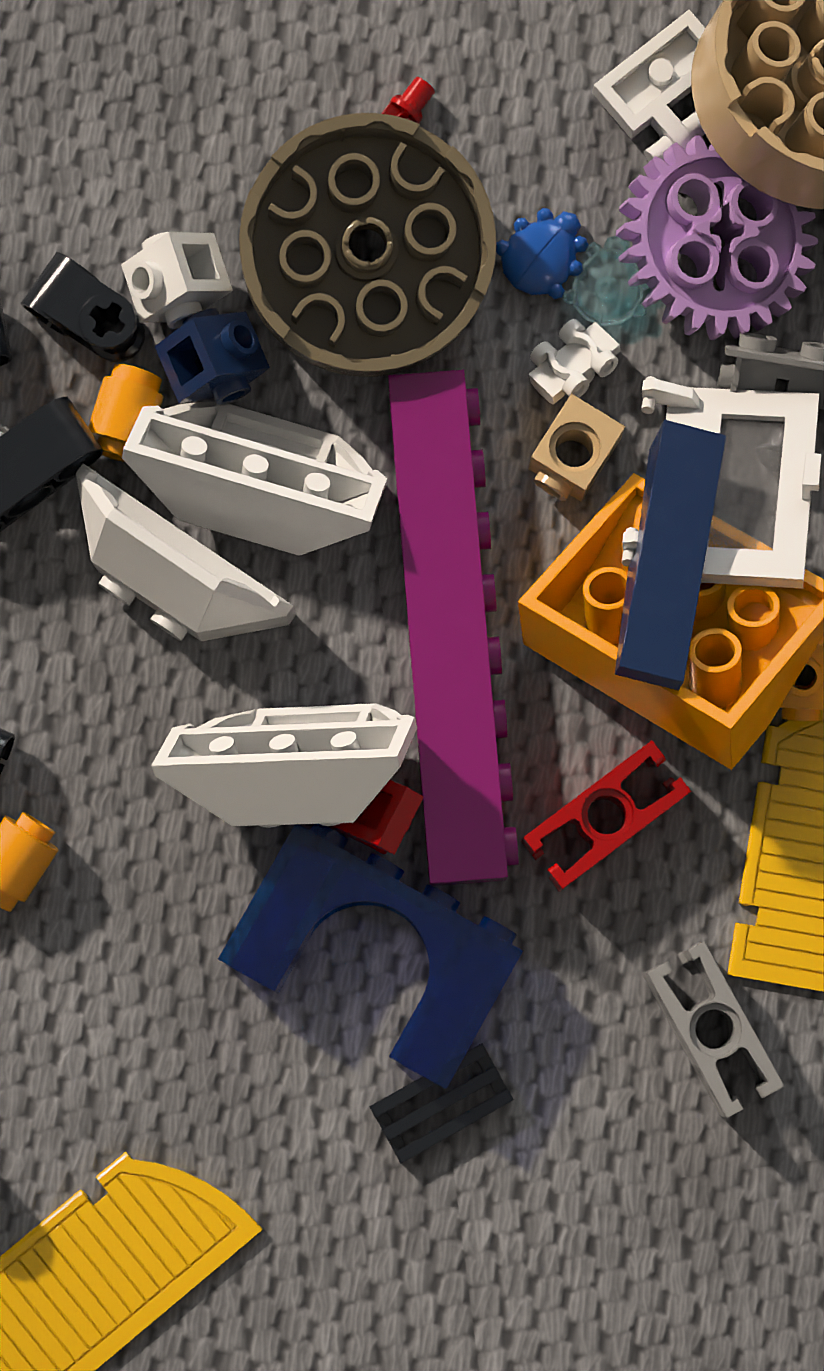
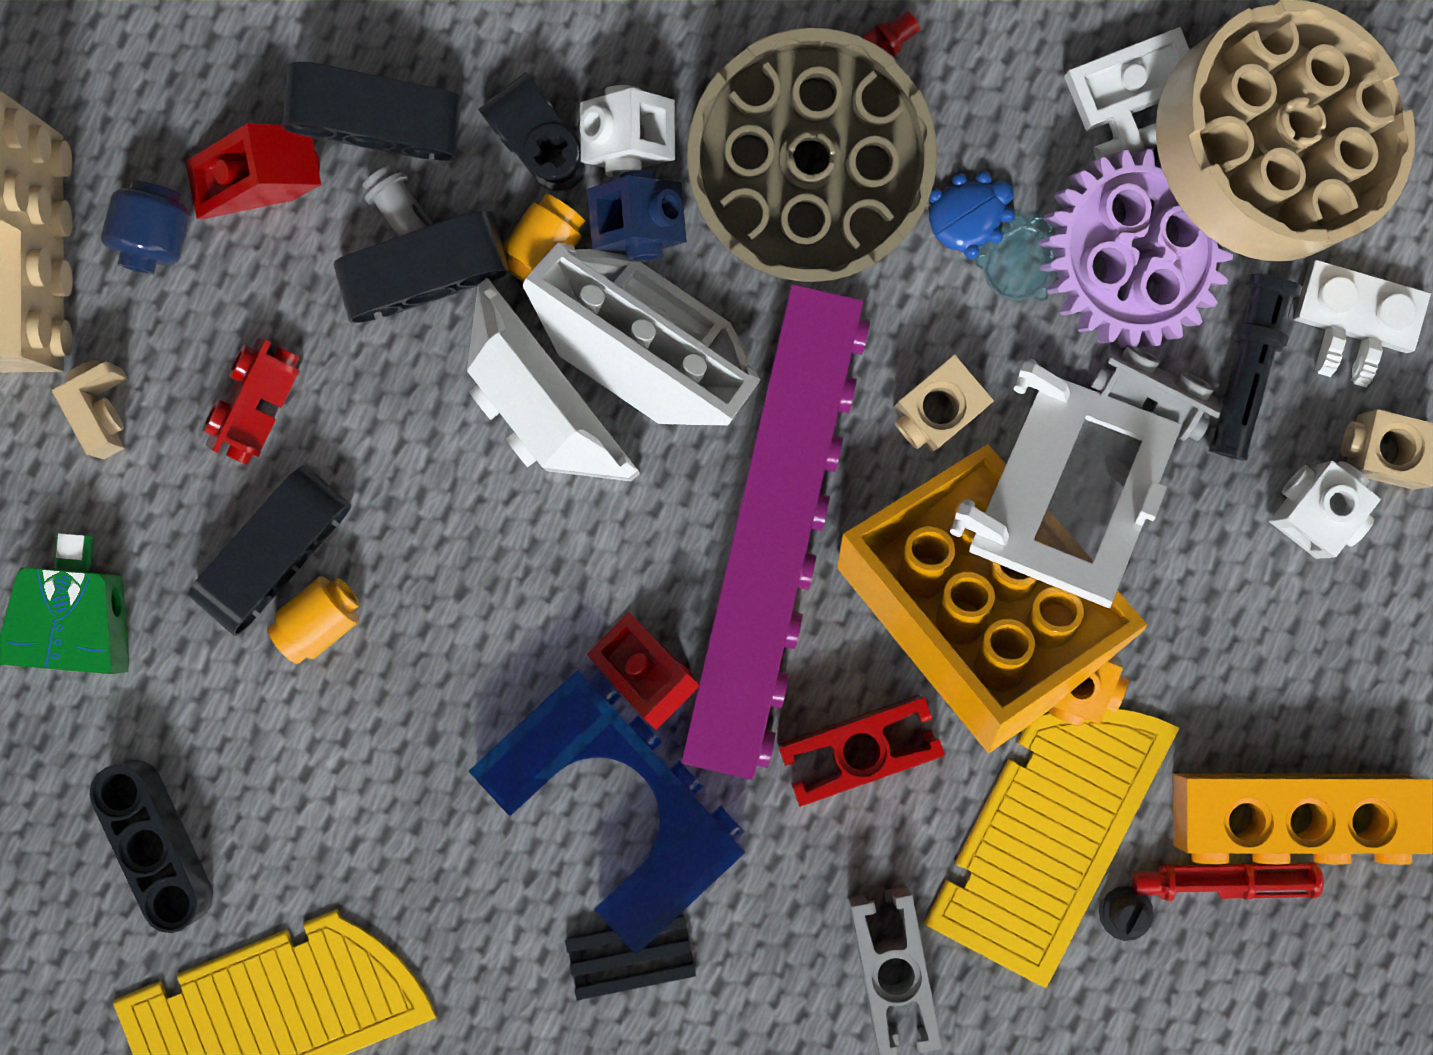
camera: 15 degrees right, 5 degrees up
(287, 762) = (588, 612): white wedge -> none
(574, 364) = (966, 325): white piece -> none
(669, 554) = (996, 539): dark blue slope -> none

